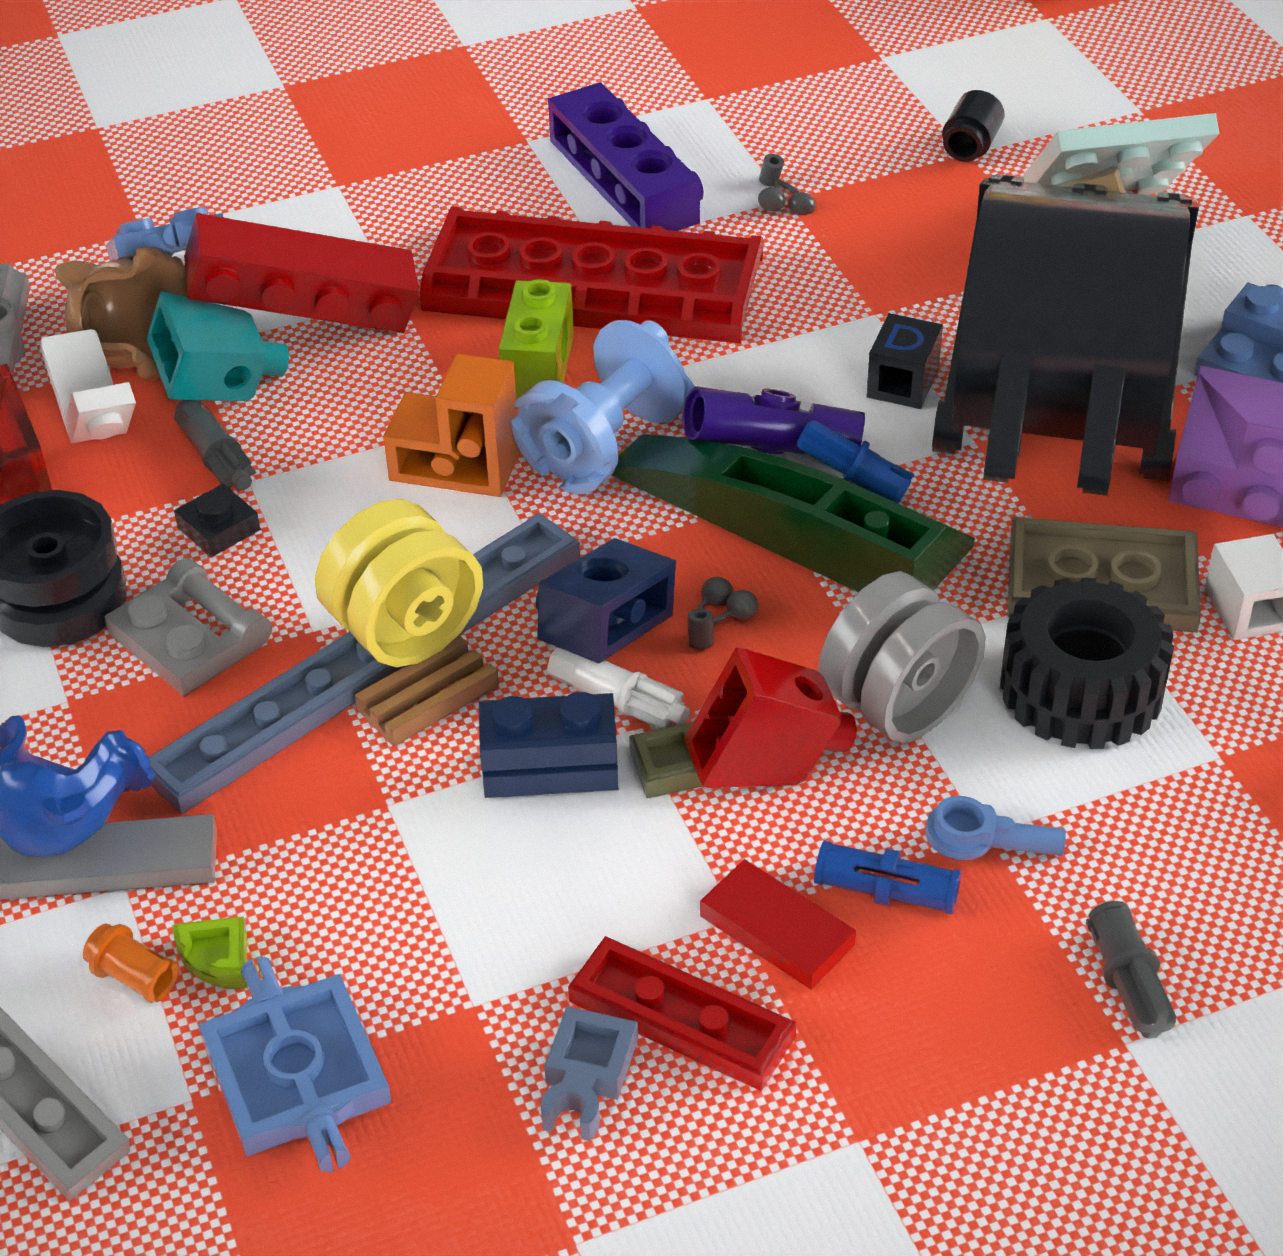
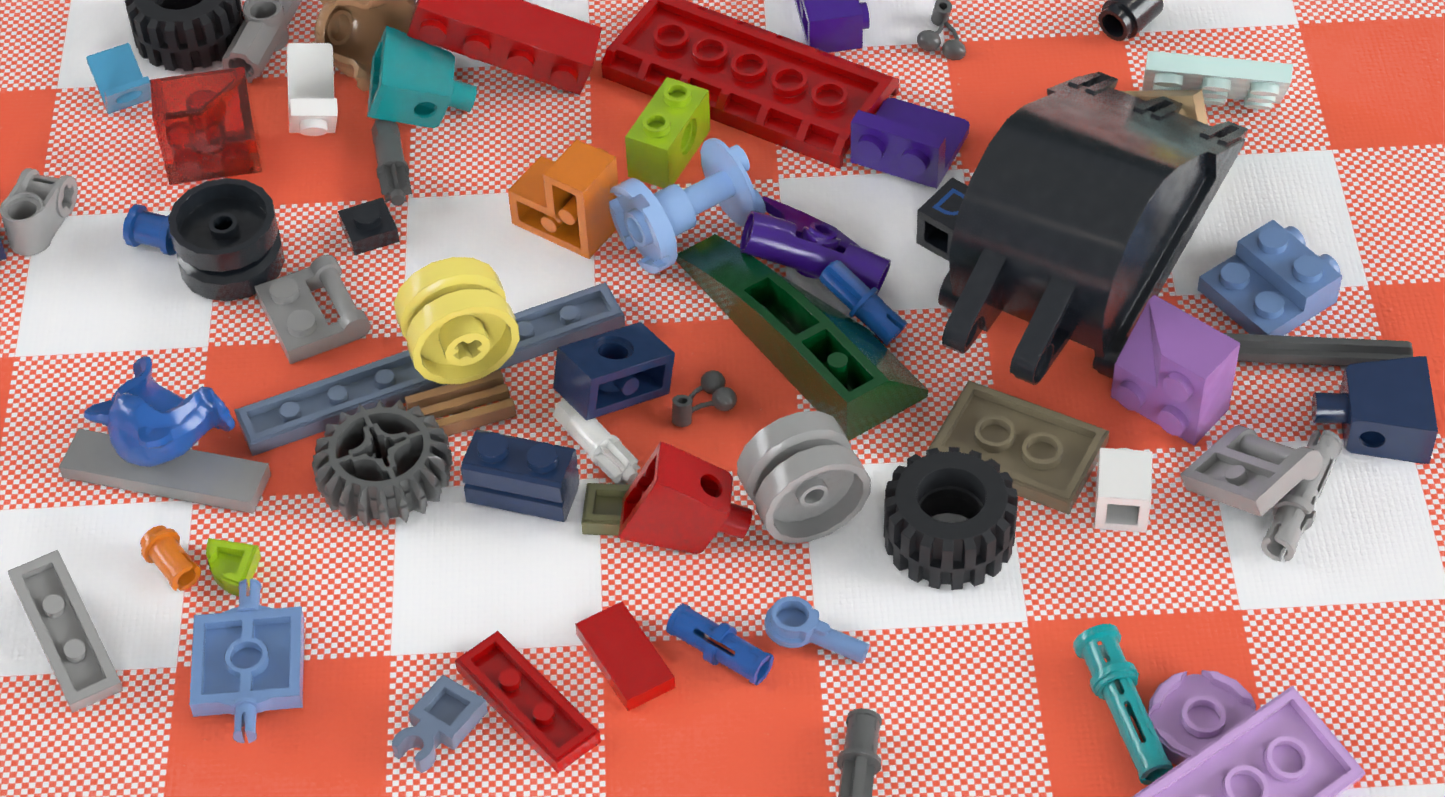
camera: 20 degrees right, 5 degrees up
(347, 771) = (382, 463): none -> dark grey gear
(809, 297) = (907, 141): none -> dark purple bracket

